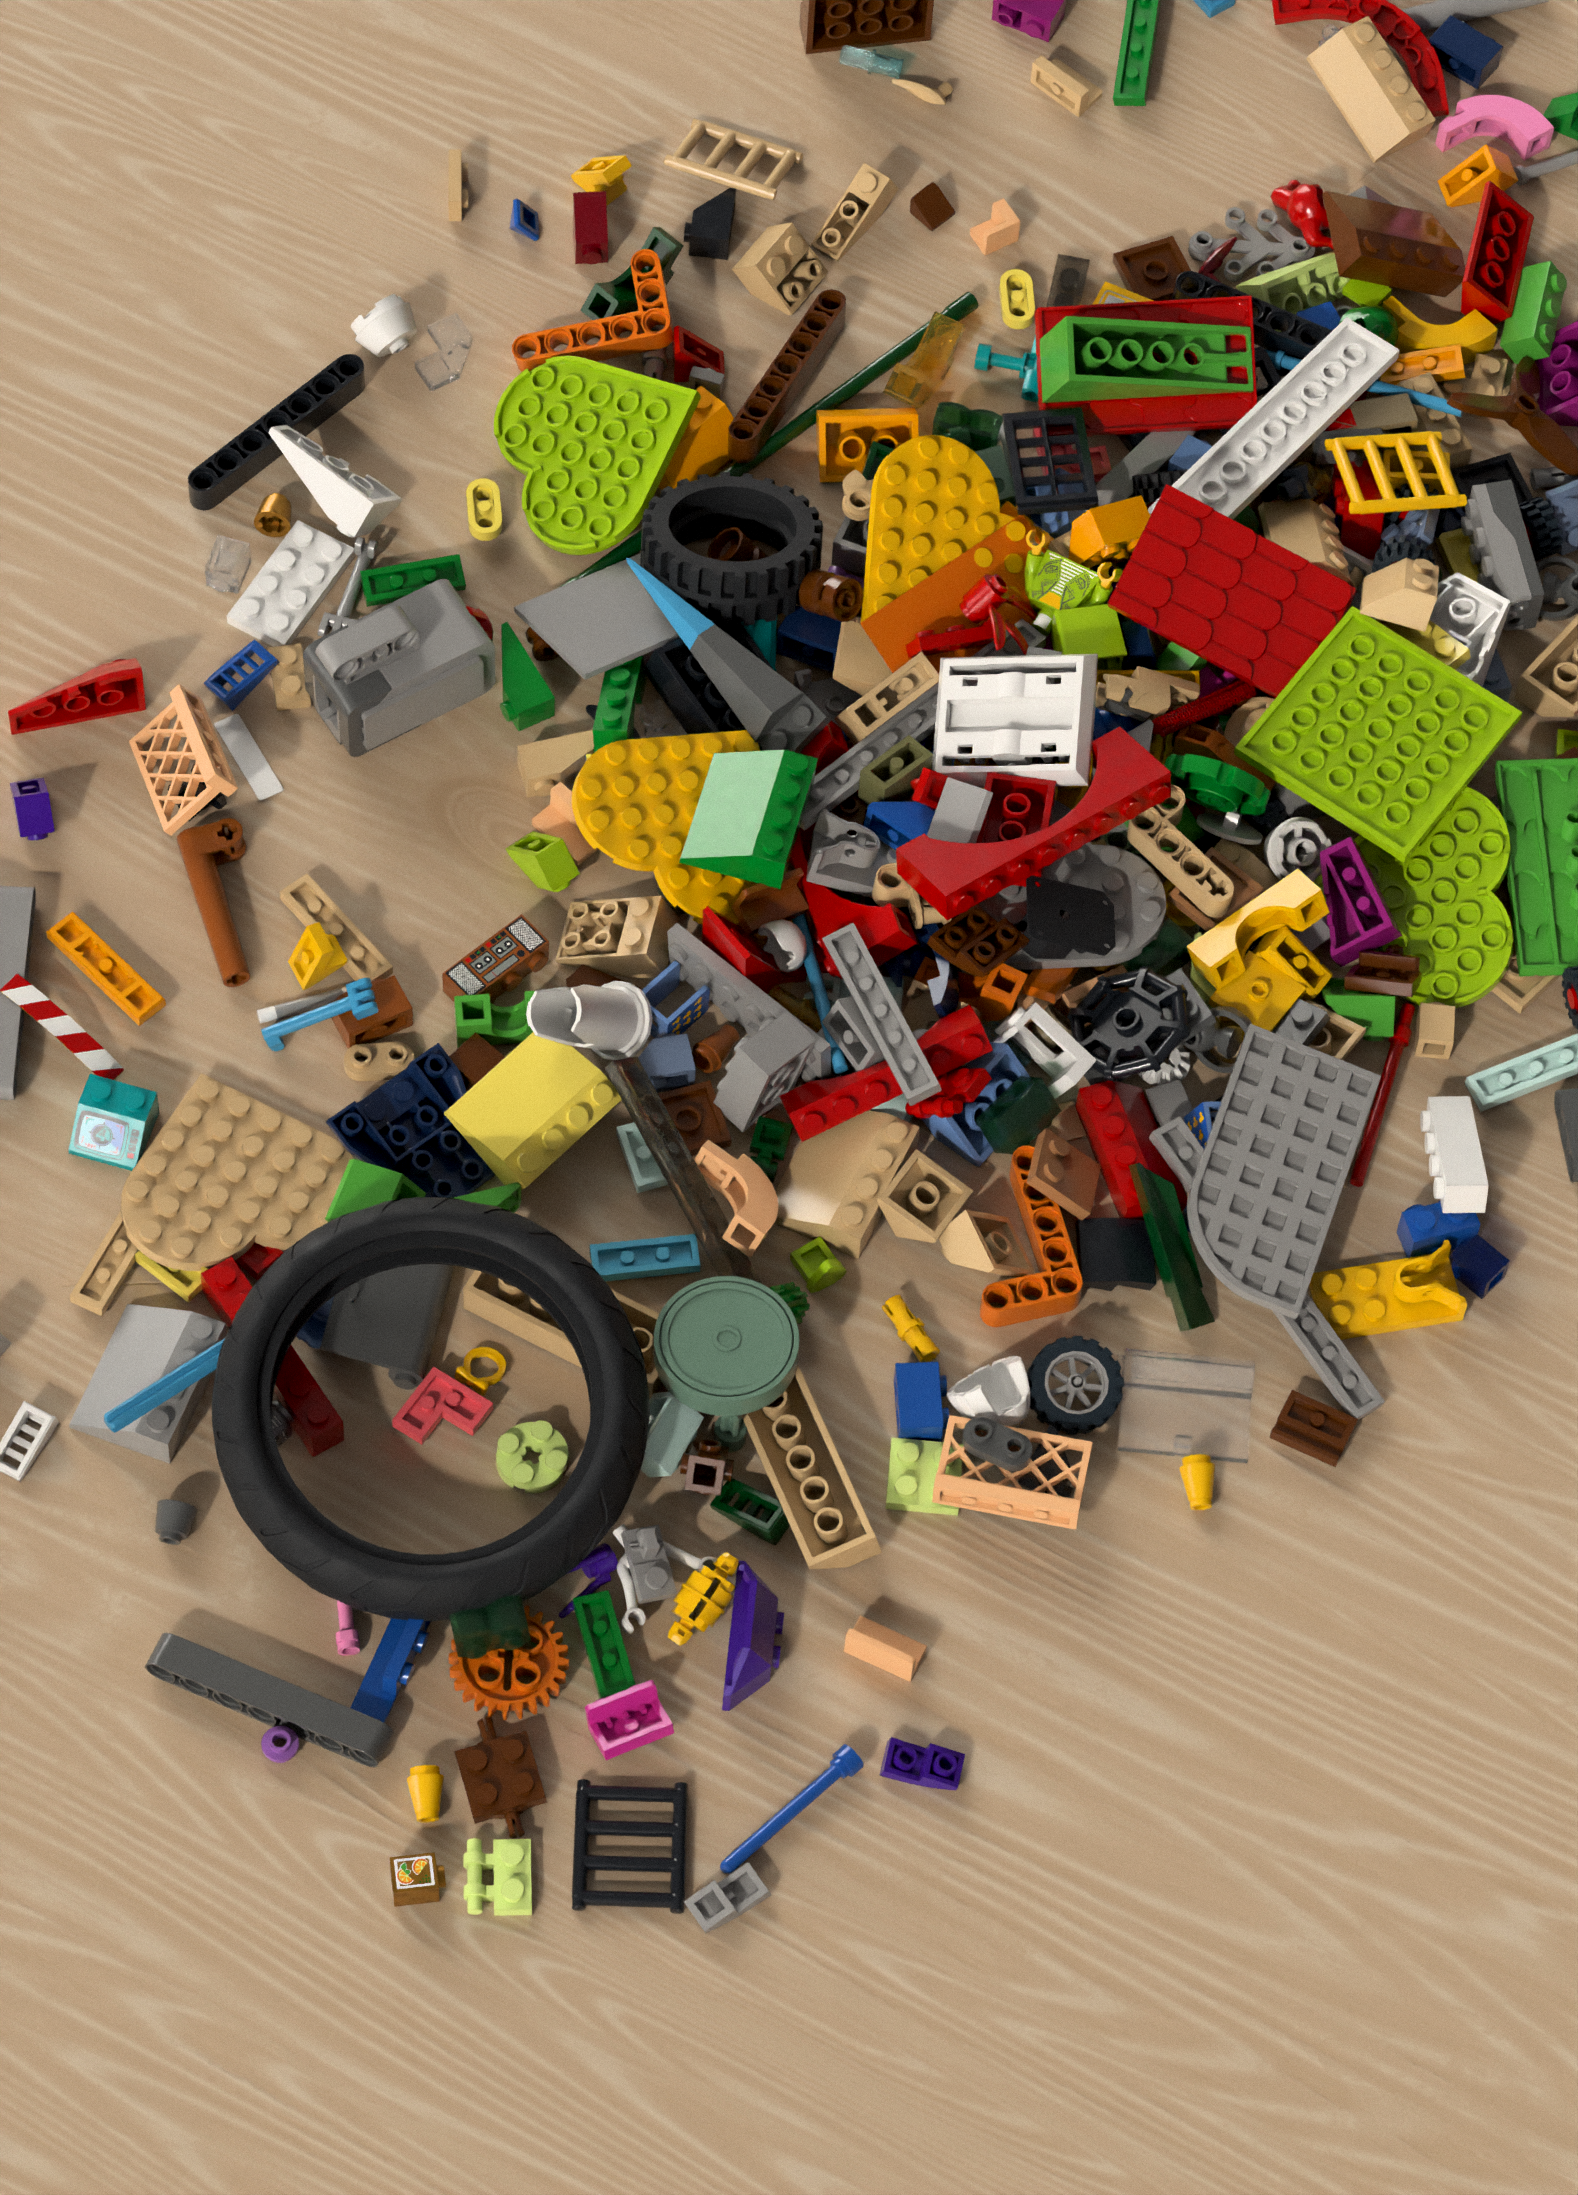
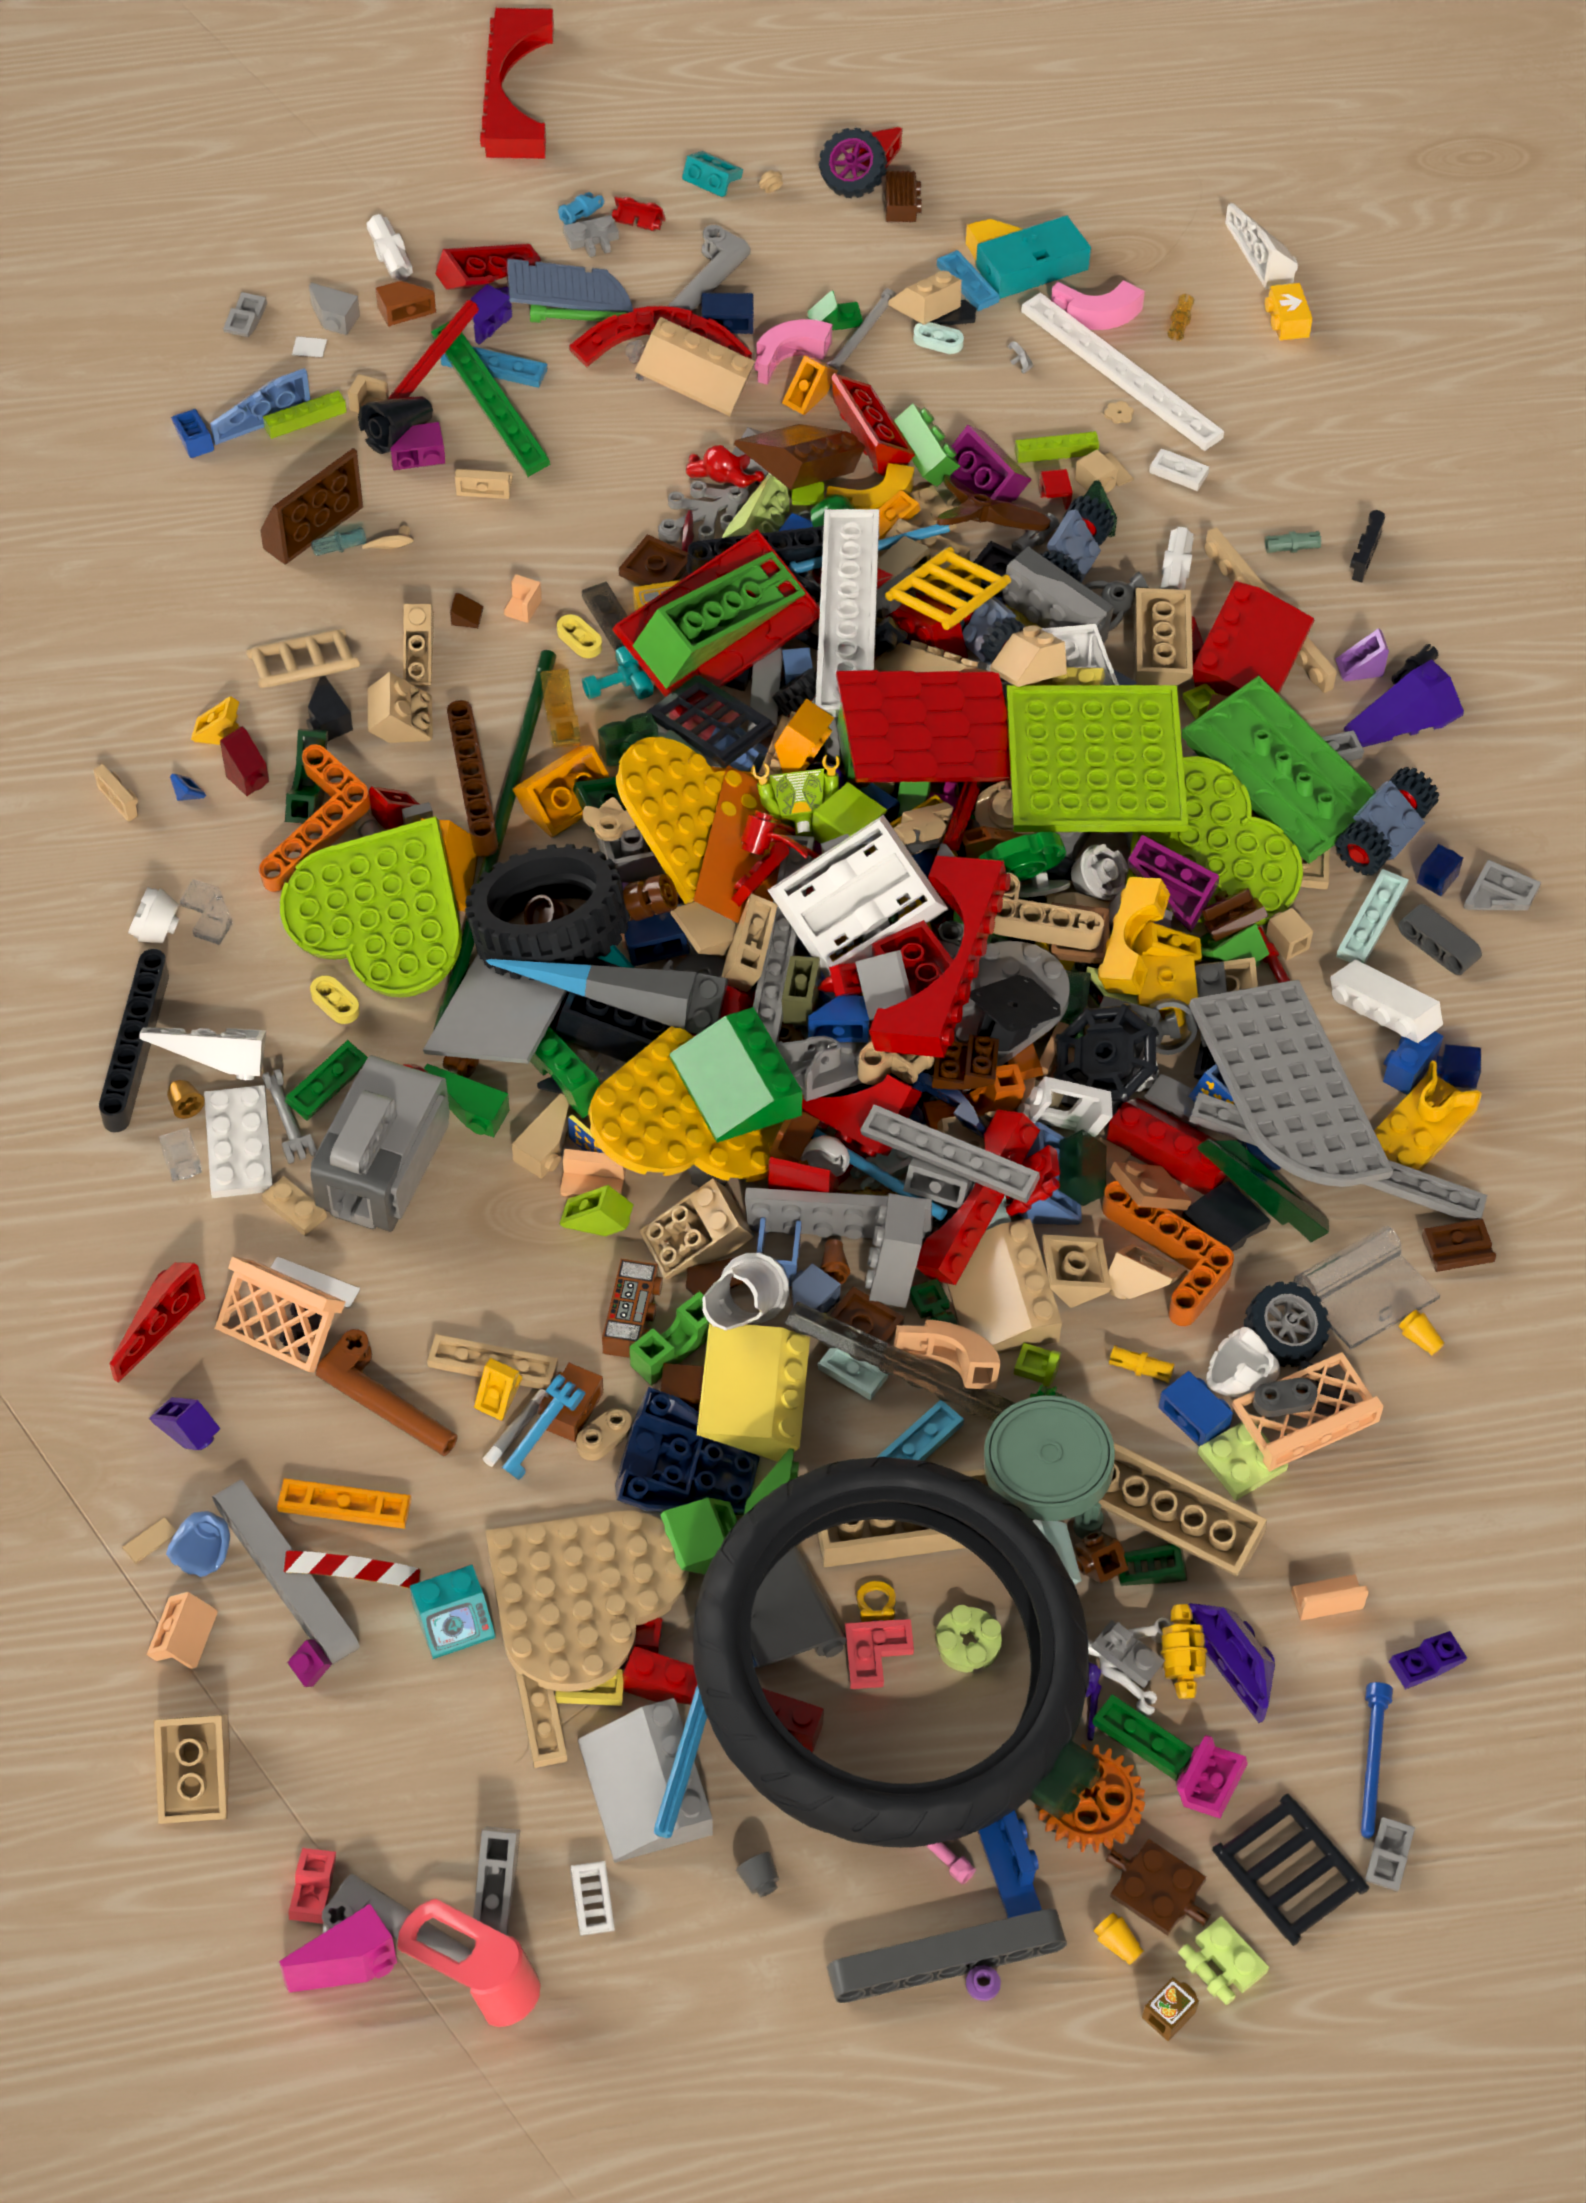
camera: 35 degrees left, 5 degrees down
(250, 681) = (260, 1249): blue slope -> none

